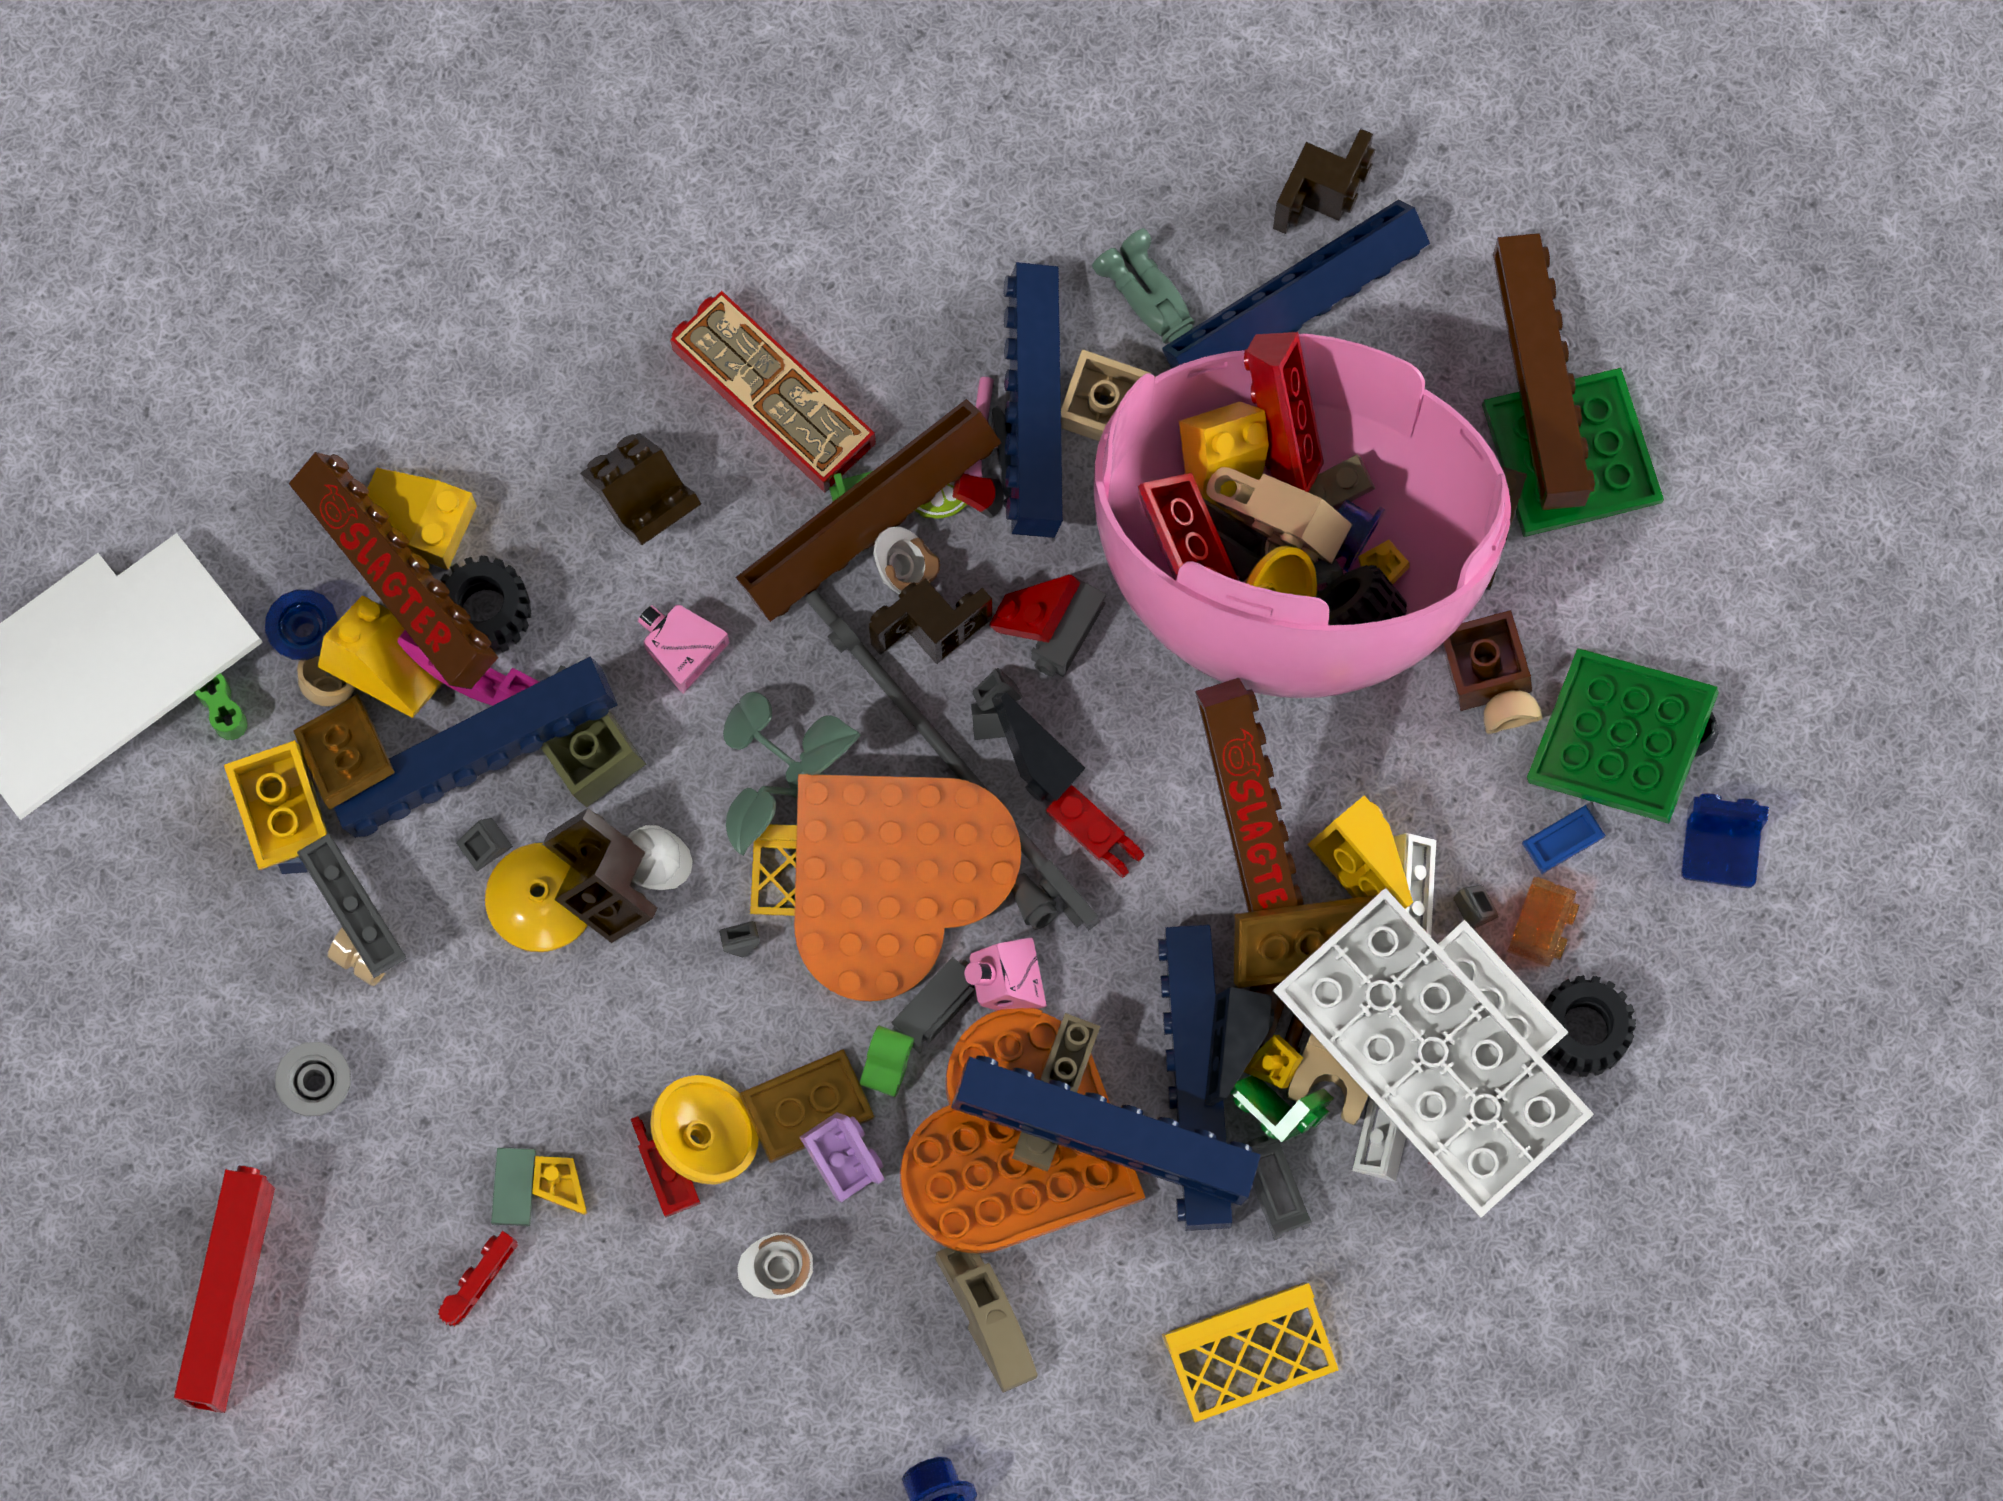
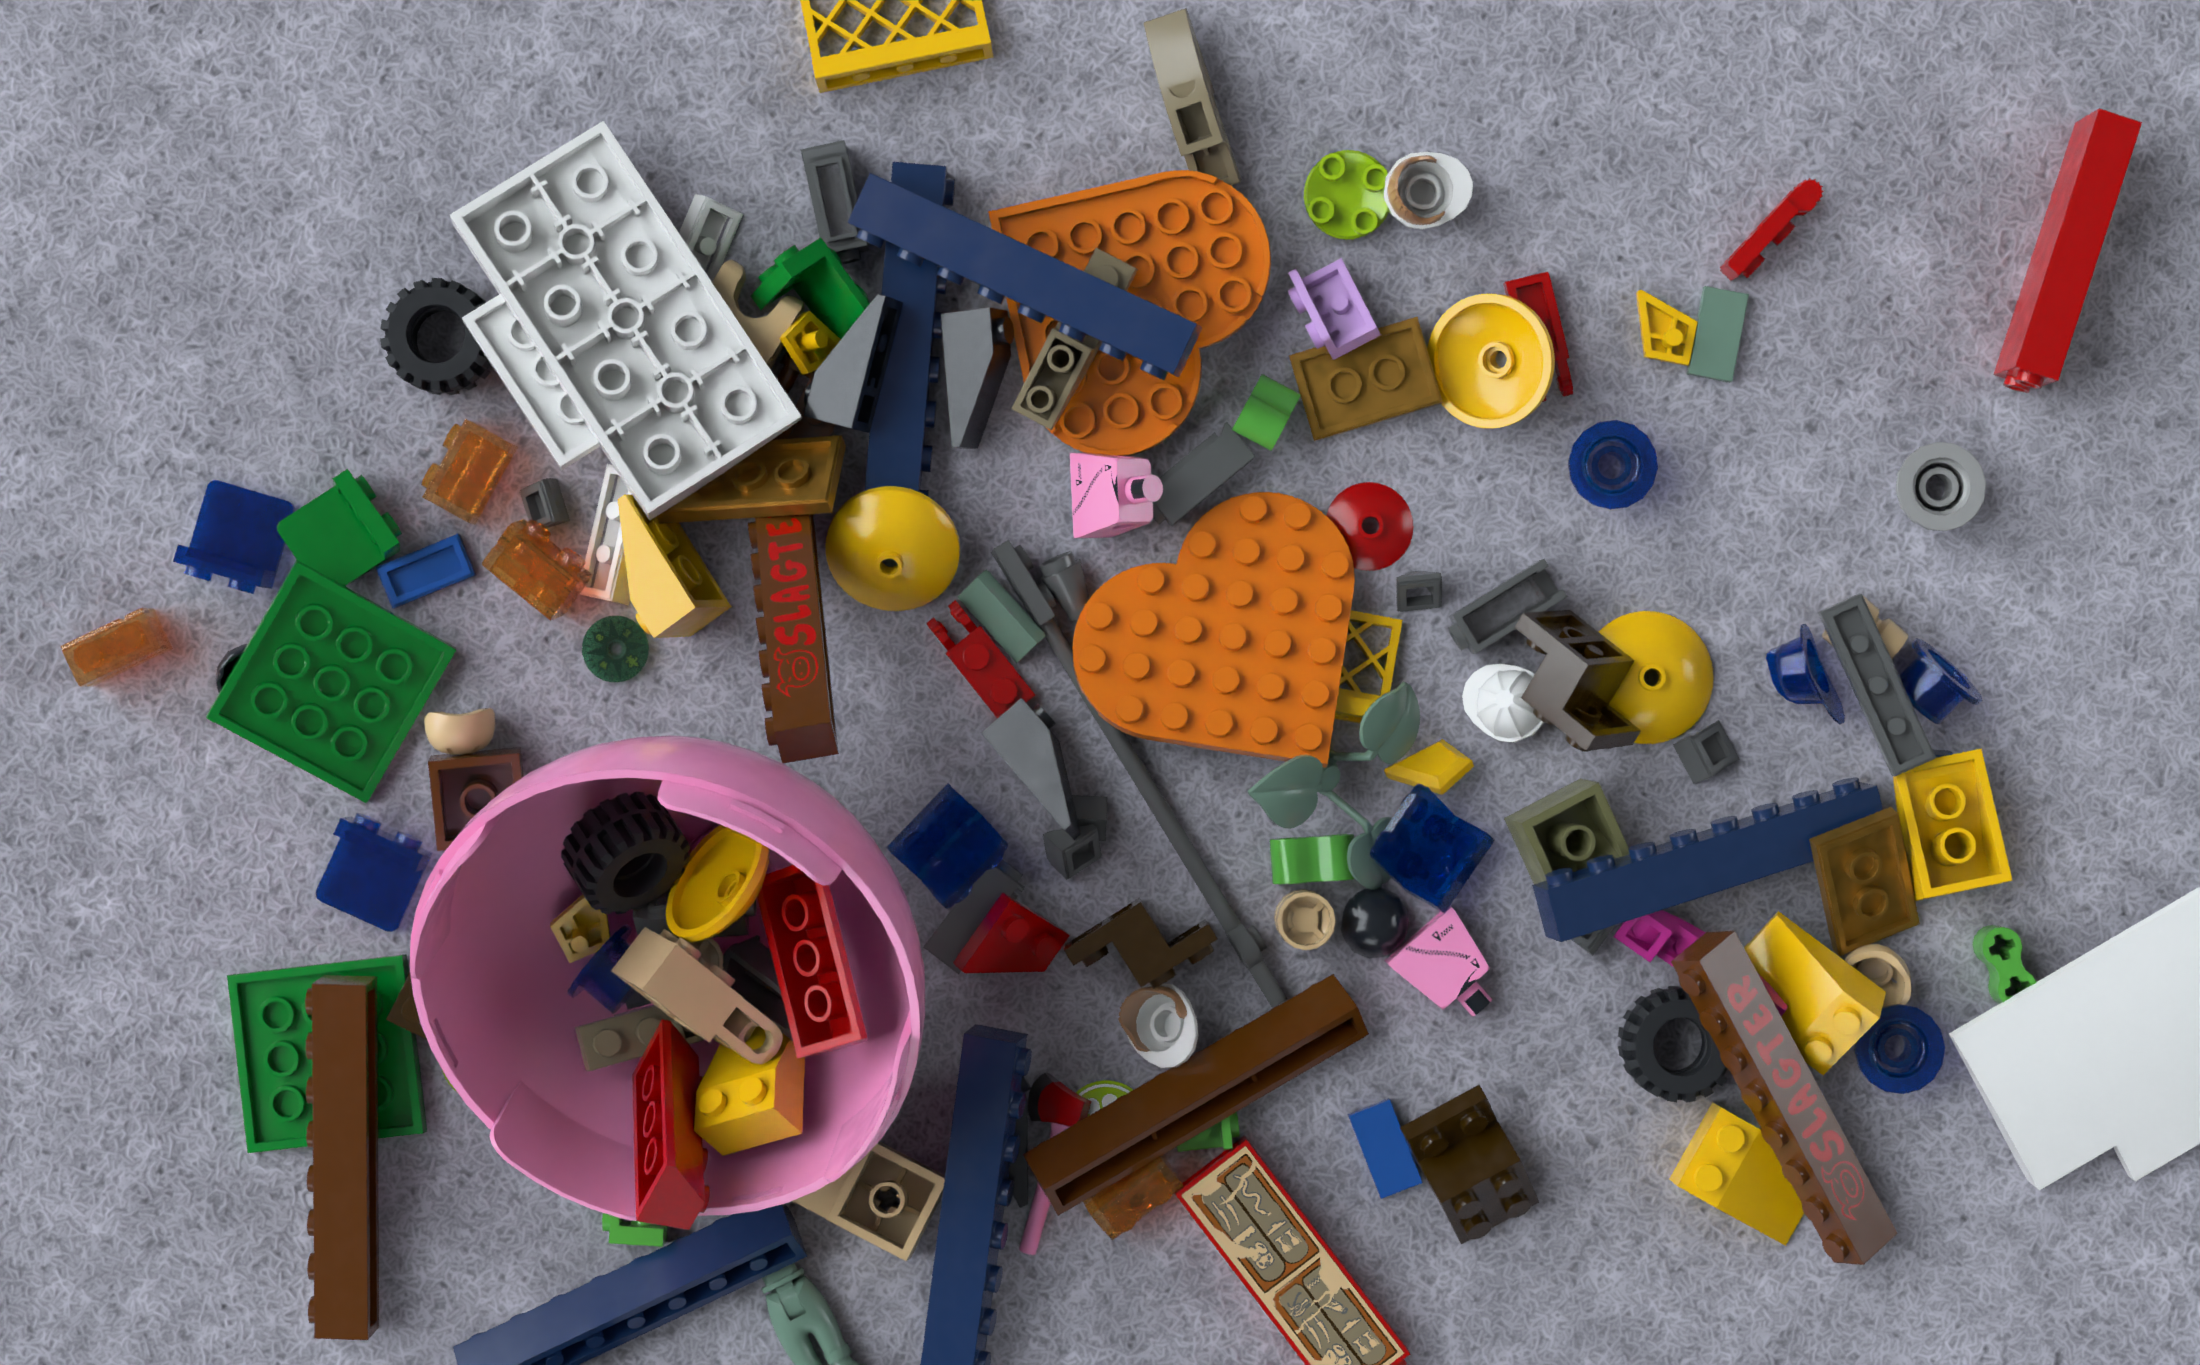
camera: 175 degrees left, 15 degrees up
(300, 920) = (1936, 684): none -> clear blue piece
(409, 911) = (1801, 675): none -> clear blue piece
(587, 1039) = (1634, 455): none -> clear blue piece
(666, 933) = (1501, 608): none -> window
(703, 728) = (1429, 849): none -> clear blue bracket
(708, 797) = (1435, 767): none -> yellow piece
(717, 507) = (1385, 1148): none -> blue tile
(741, 669) = (1374, 922): none -> black hair
(782, 1005) = (1394, 521): none -> red dish
(798, 710) = (1310, 859): none -> bright green axle
(799, 660) = (1304, 919): none -> tan wheel
(844, 1258) = (1346, 194): none -> lime dish
(915, 417) = (1133, 1197): none -> clear orange brick
(1082, 868) = (1001, 616): none -> sand green tile
(1096, 676) = (949, 846): none -> clear blue bracket
(1137, 1066) = (975, 363): none -> slope
(1181, 906) = (899, 527): none -> yellow dish
(1406, 789) = (598, 648): none -> clear green piece
(1471, 850) = (538, 568): none -> clear orange brick
(1562, 594) = (372, 872): none -> clear blue bracket
(1639, 856) = (341, 531): none -> green bracket
(1803, 739) = (116, 647): none -> clear orange brick

